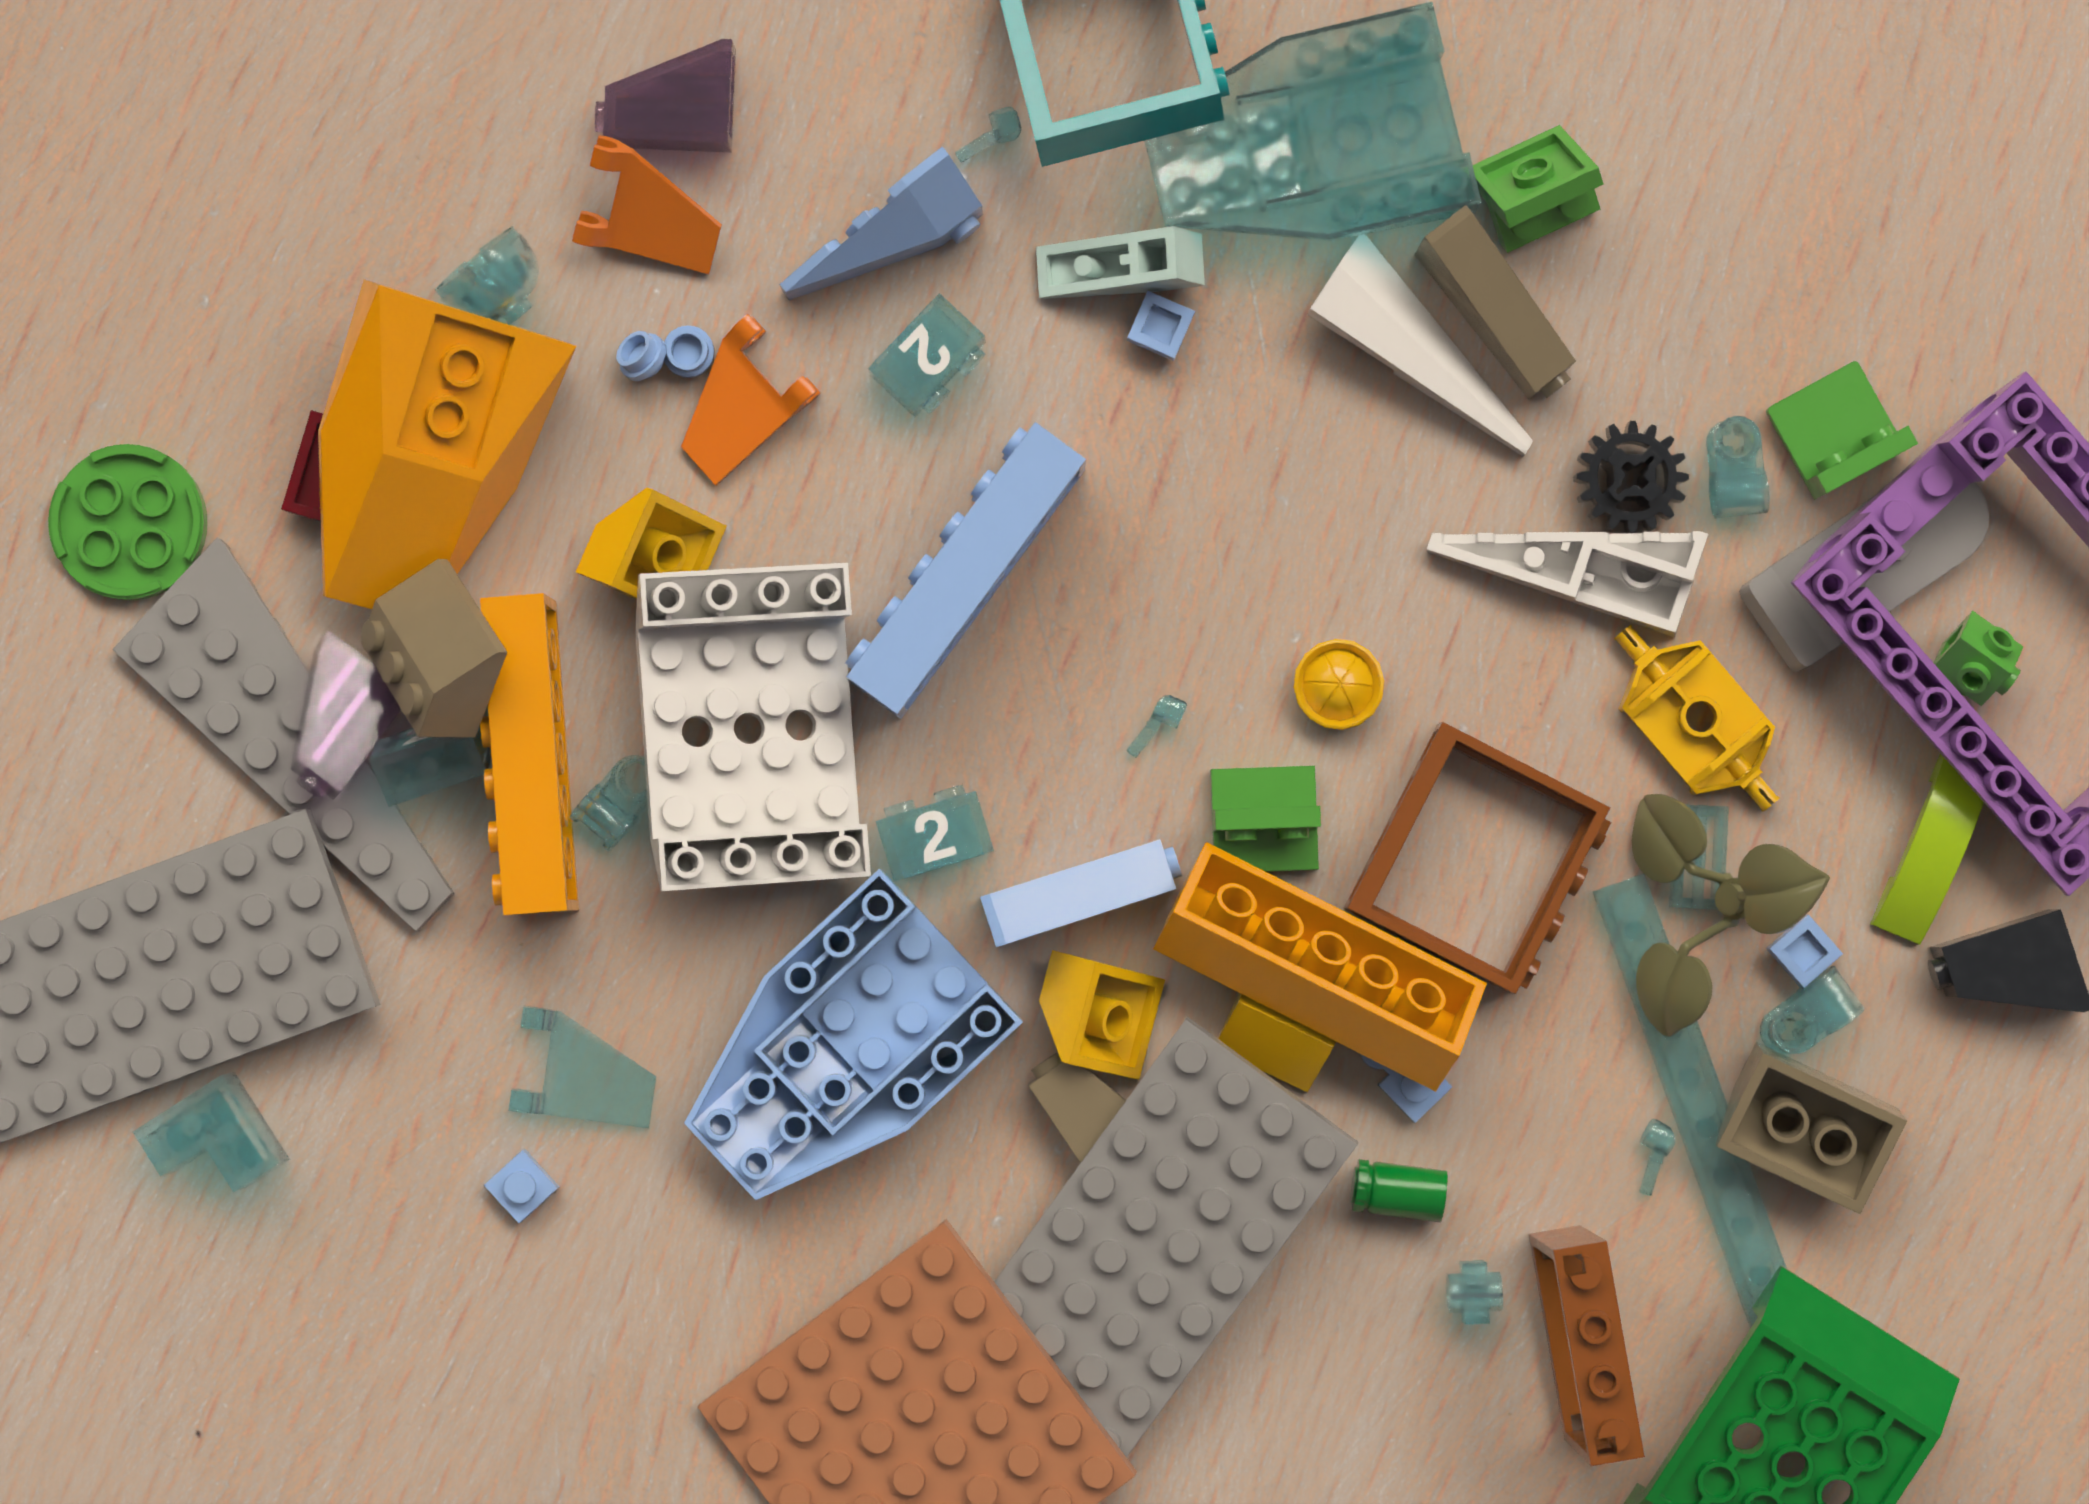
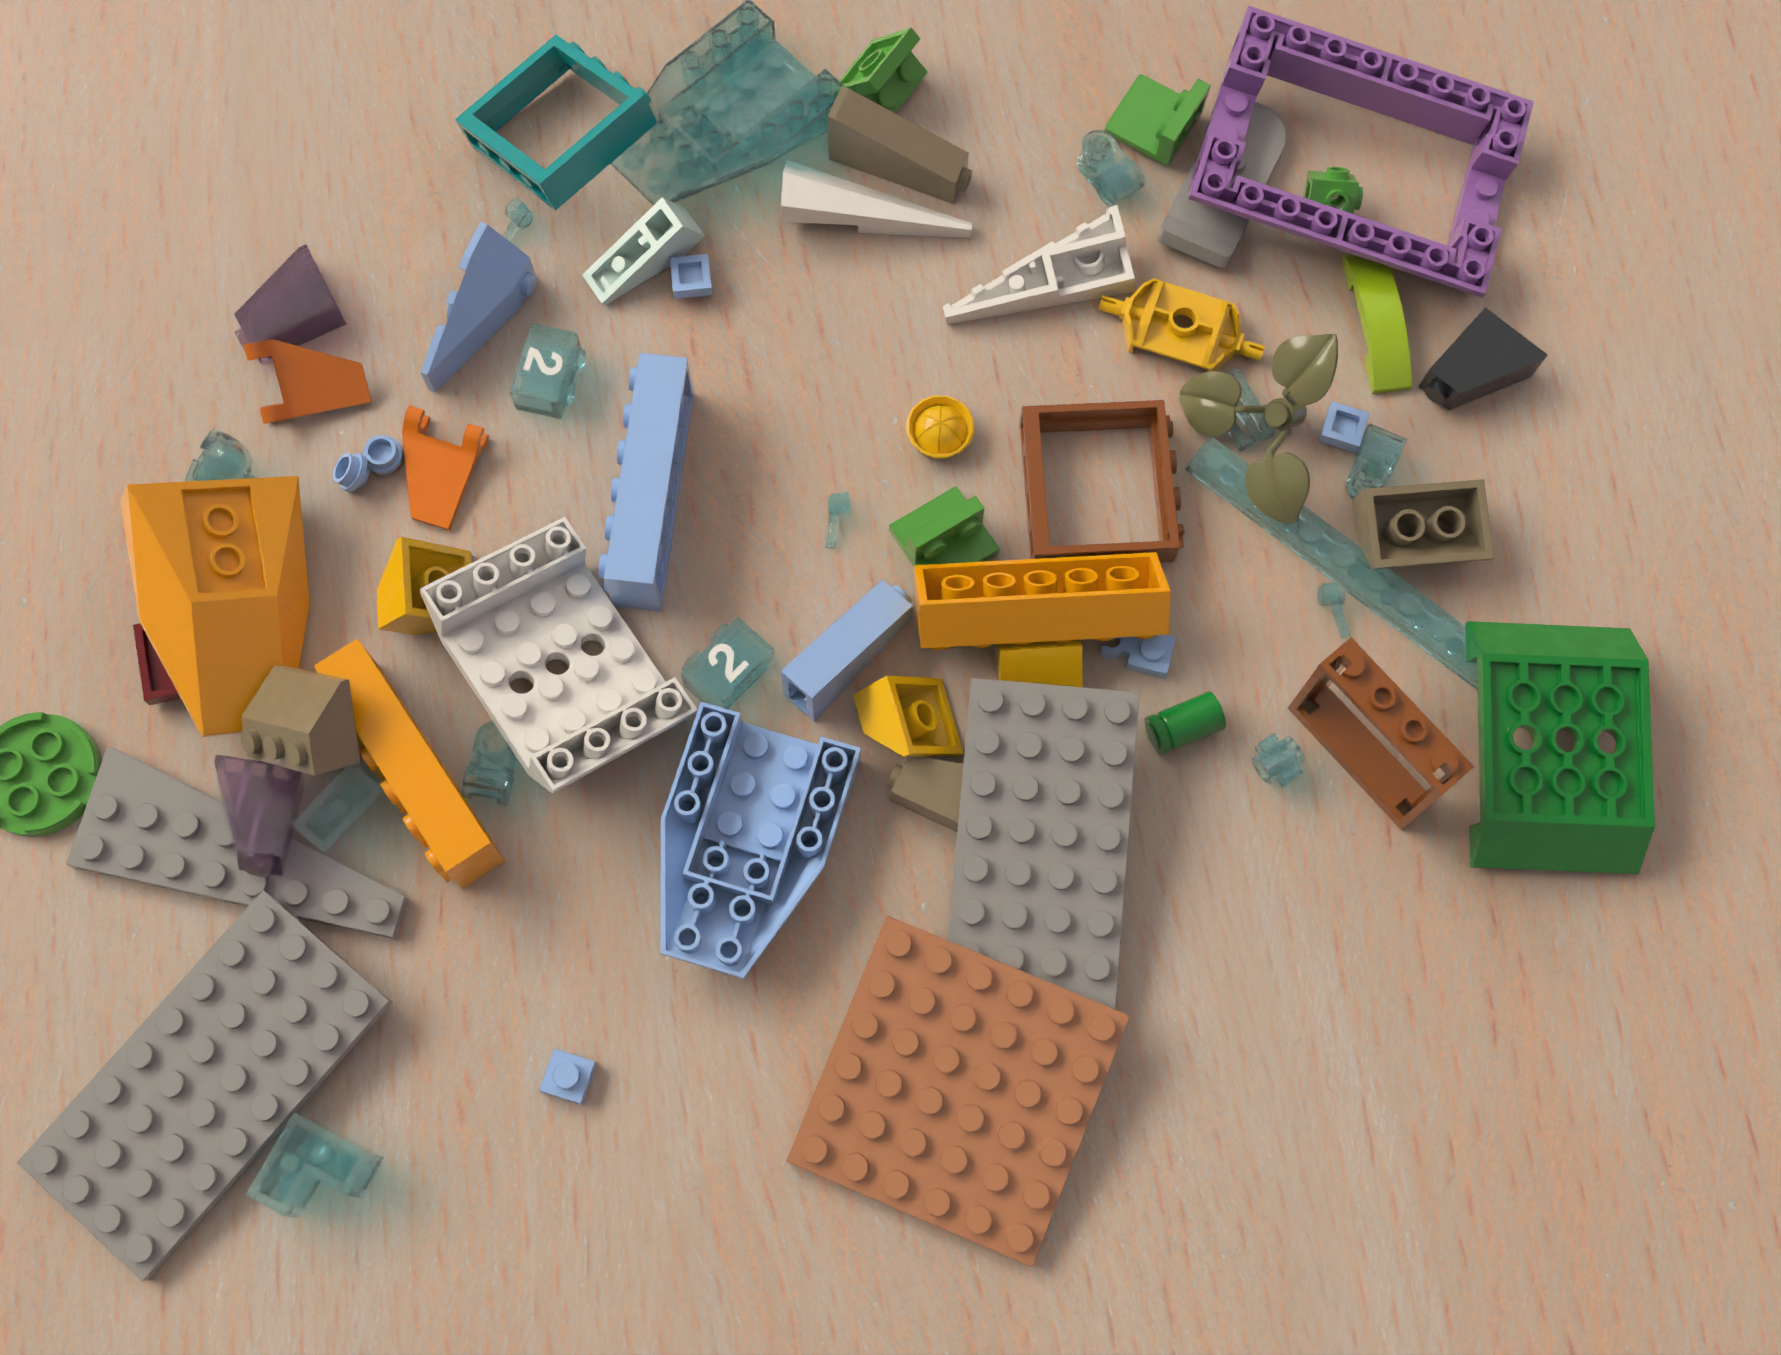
camera: 30 degrees left, 15 degrees down
(585, 1076) = (571, 971): clear light blue flag -> none
(1648, 495) = (1030, 198): black gear -> none

